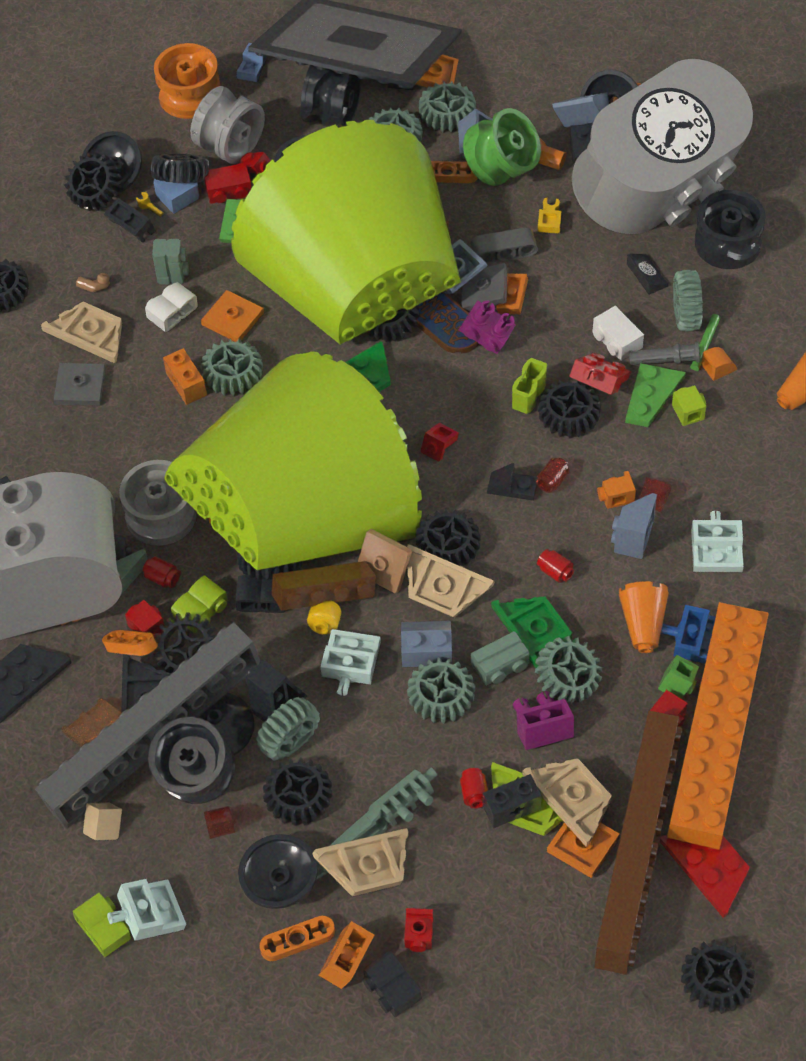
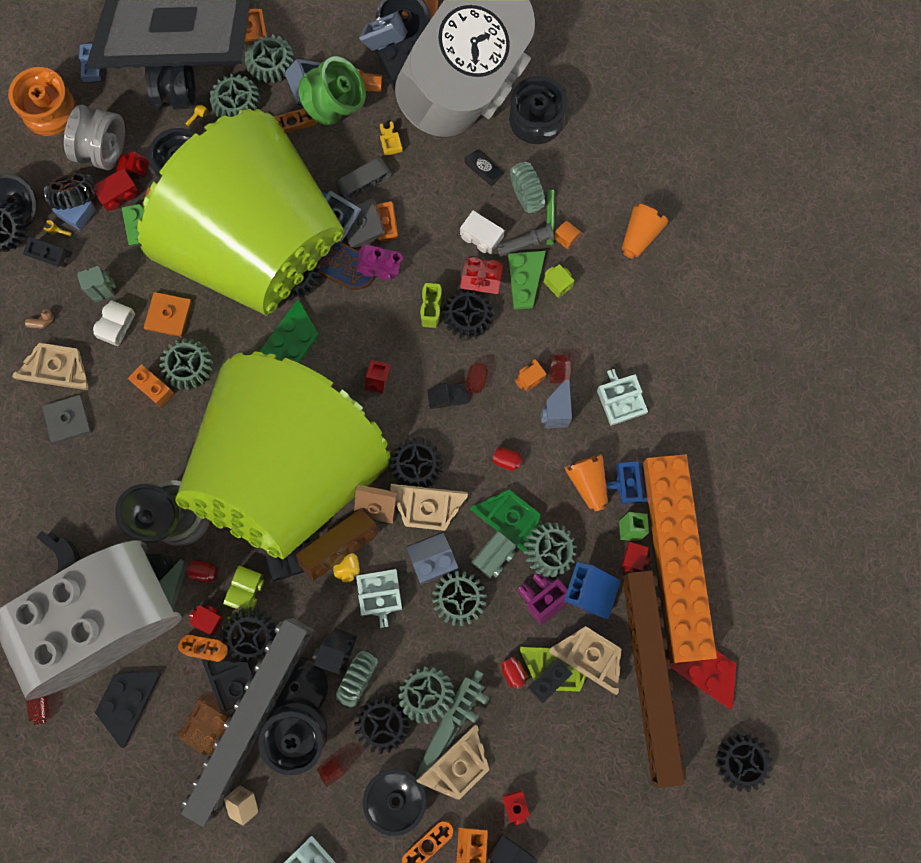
camera: 25 degrees left, 20 degrees up
(130, 475) = (147, 502): none -> black dish
(361, 773) = (428, 680): none -> sand green gear
(573, 852) = (603, 698): orange plate -> none
(601, 724) = (592, 590): none -> blue brick

